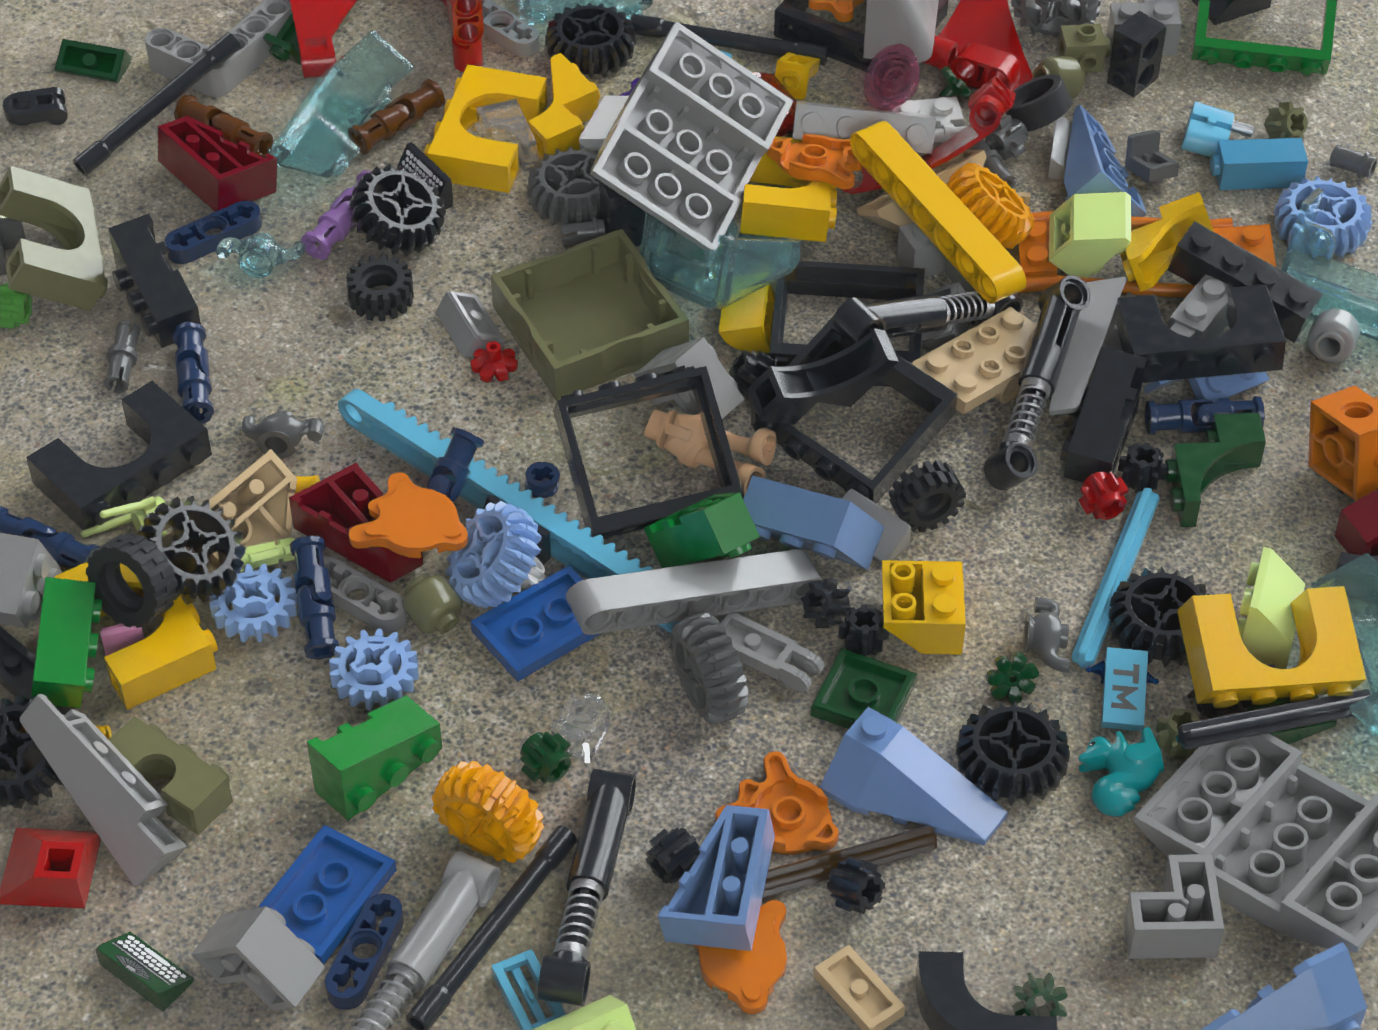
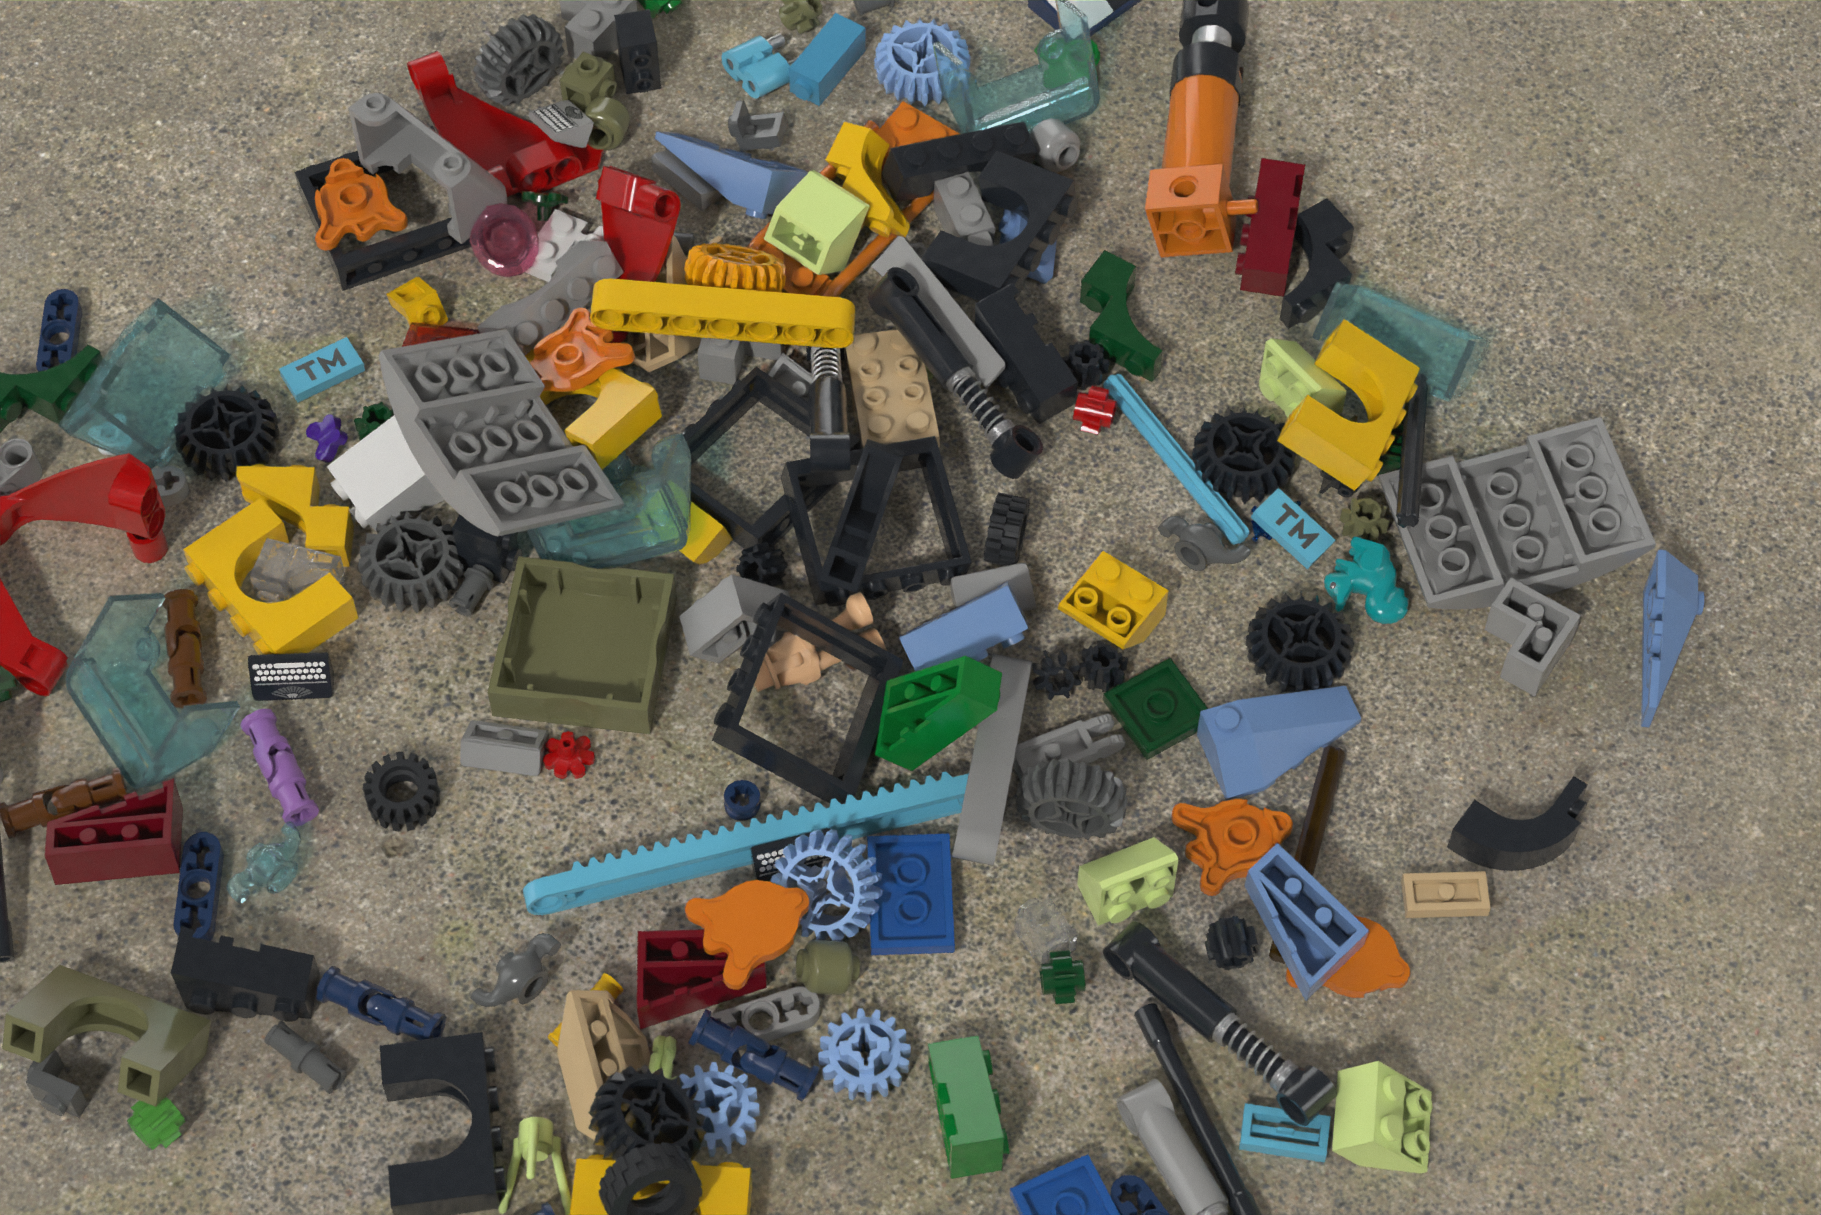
camera: 55 degrees left, 10 degrees up
(397, 210) = (325, 719): black gear -> none
(454, 462) = (702, 851): dark blue piece -> none
(487, 811) = (1100, 1052): light orange gear -> none
(659, 27) = (257, 369): black piece -> none
(670, 752) = (1128, 880): none -> yellowish green slope
(856, 885) = (1352, 833): black gear -> none
(1012, 677) = (1225, 595): dark green plant -> none
(1026, 52) = (563, 123): none -> light grey slope
(1039, 987) = (1542, 778): dark green gear -> none
(1040, 101) = (619, 139): black tyre -> none
(1179, 415) = (1064, 285): dark blue piece -> none

